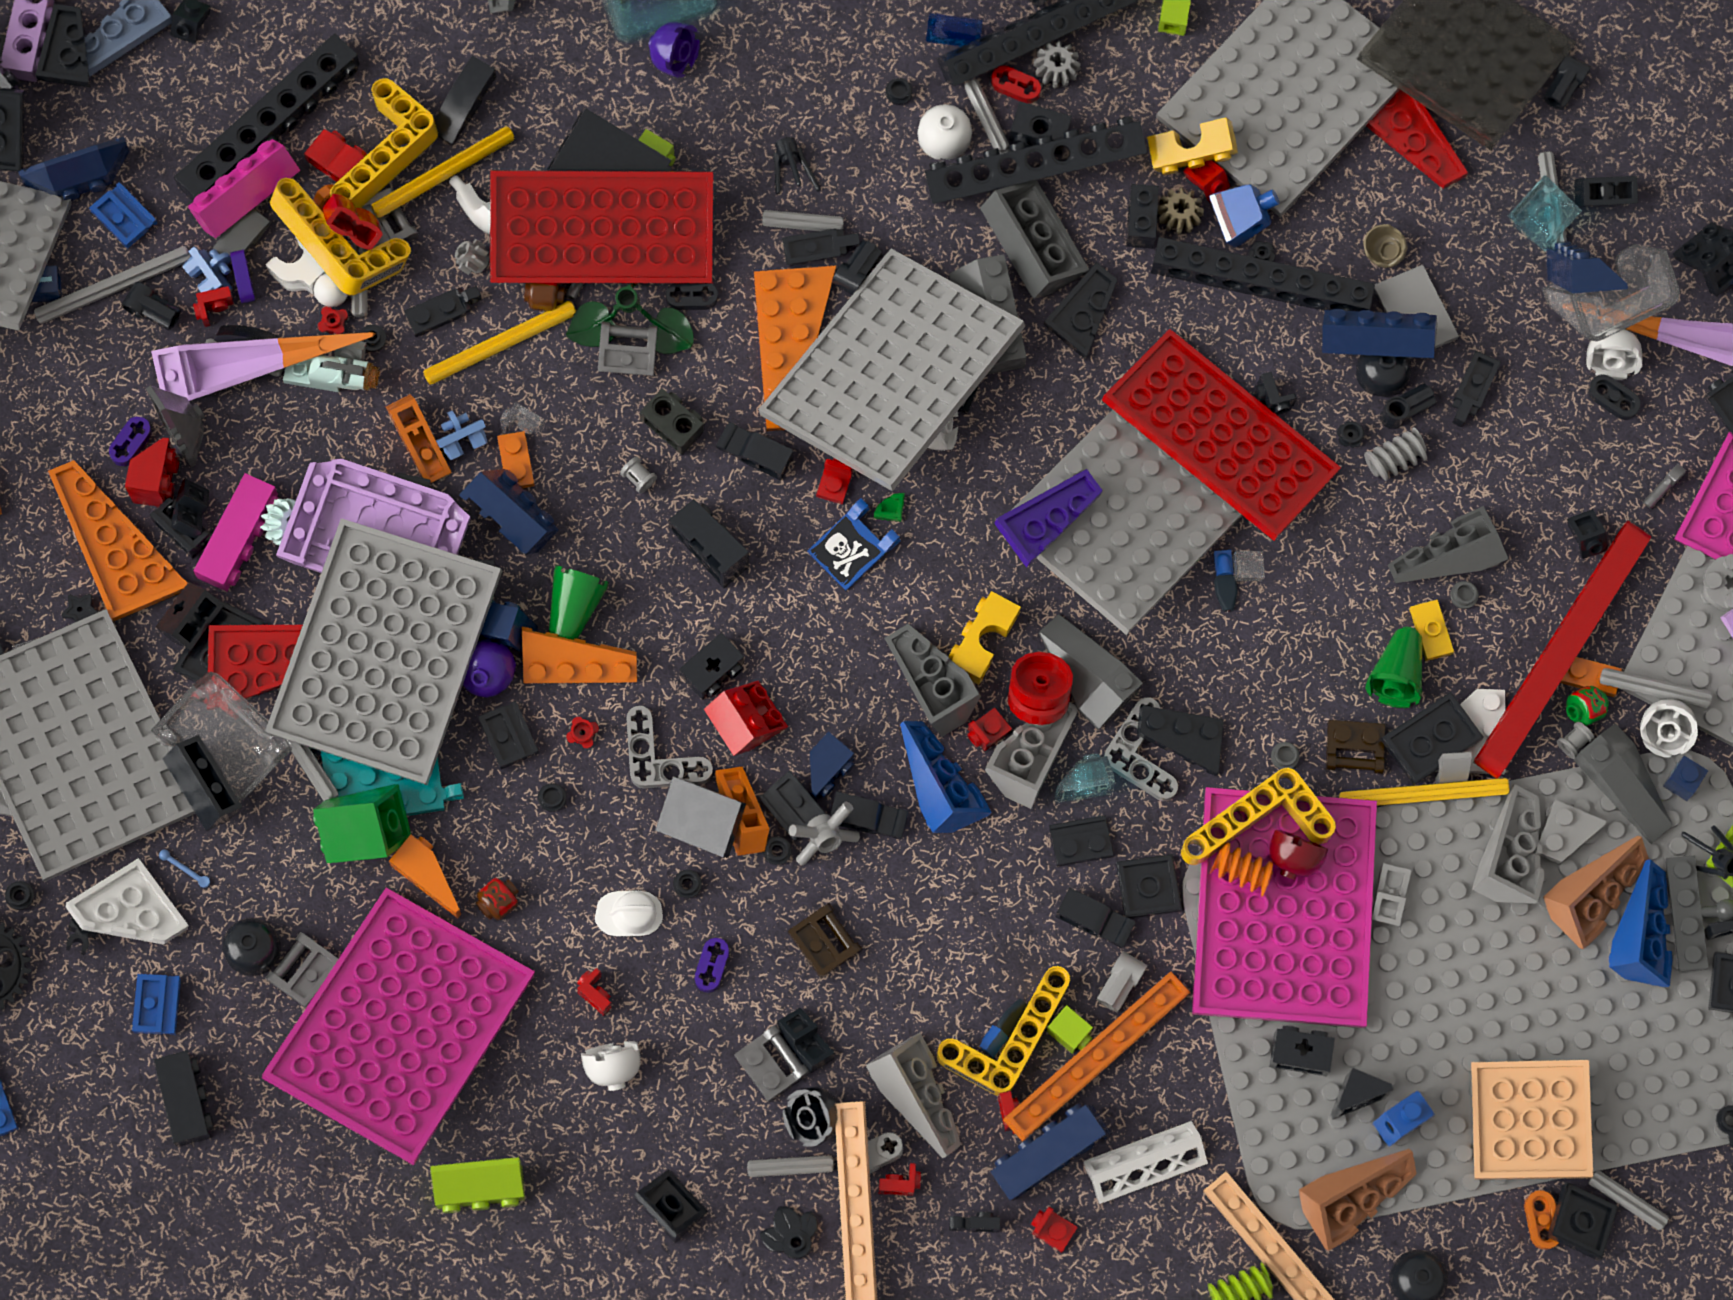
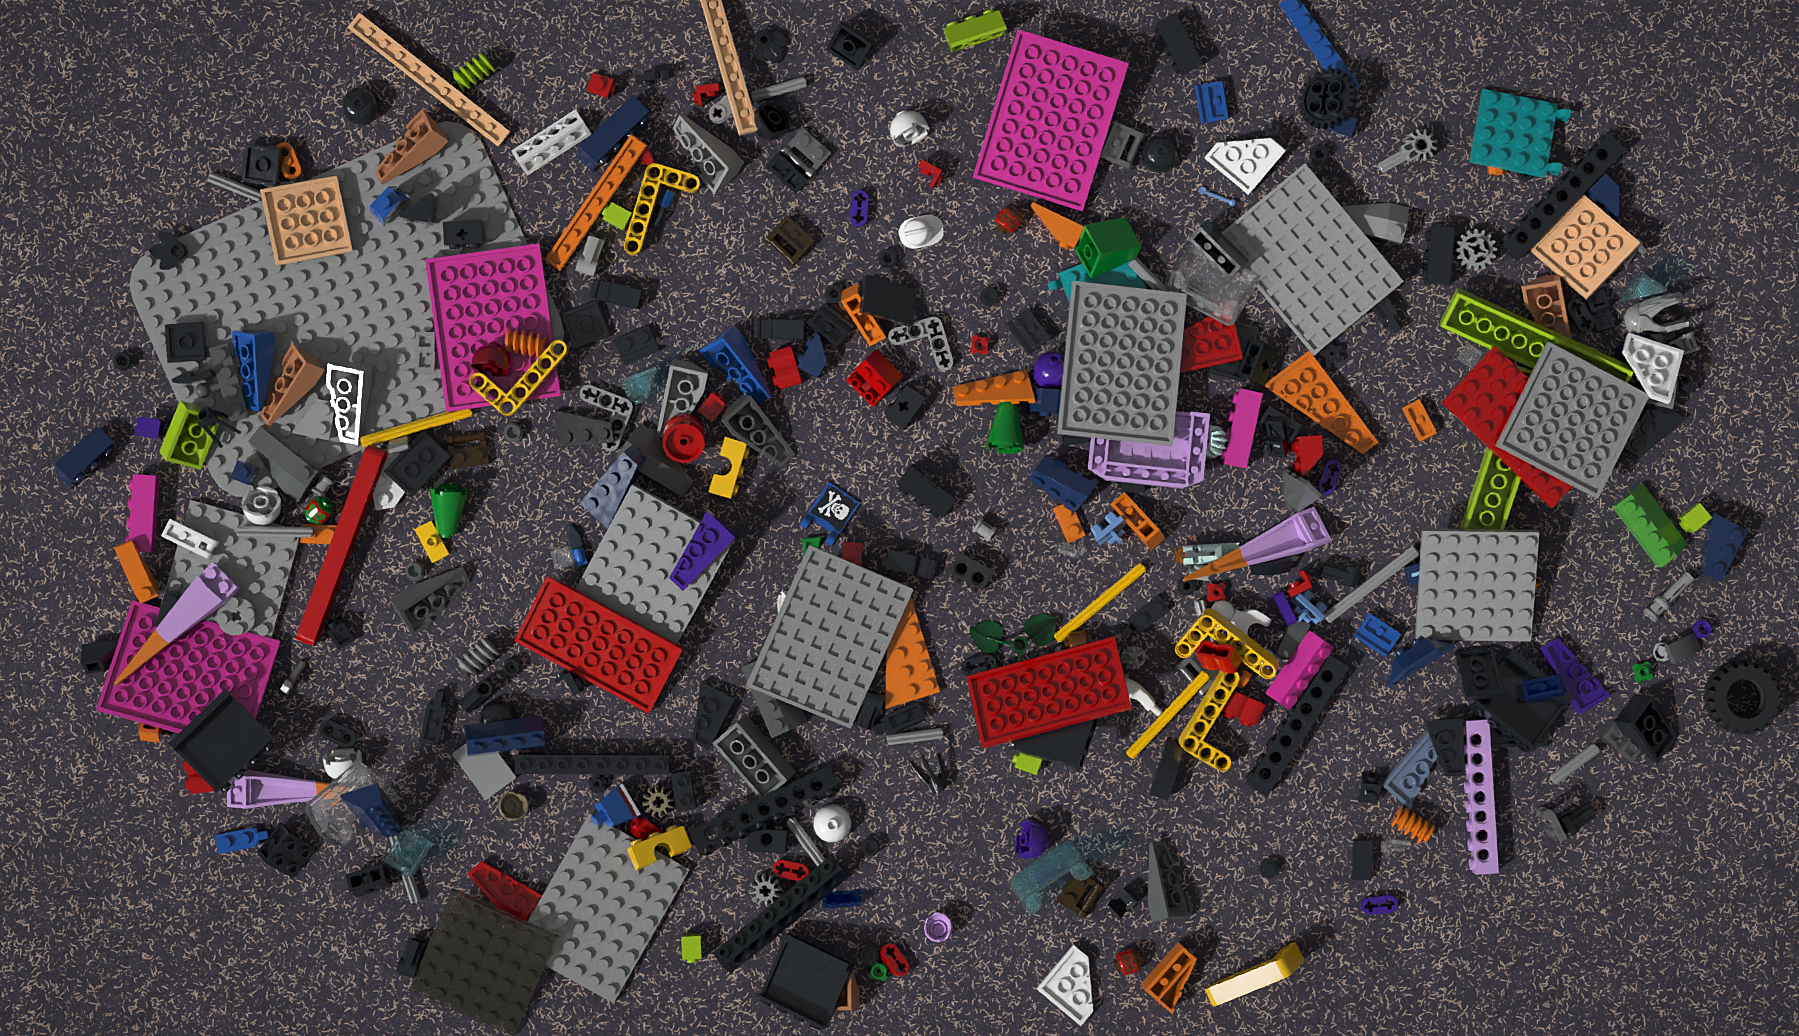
camera: 175 degrees right, 15 degrees up
(627, 358) = (1012, 609): flat silver plate -> none
(824, 833) = (804, 307): light grey bar -> none
(871, 759) = (784, 367): none -> red brick
(1160, 638) = (613, 486): none -> wedge

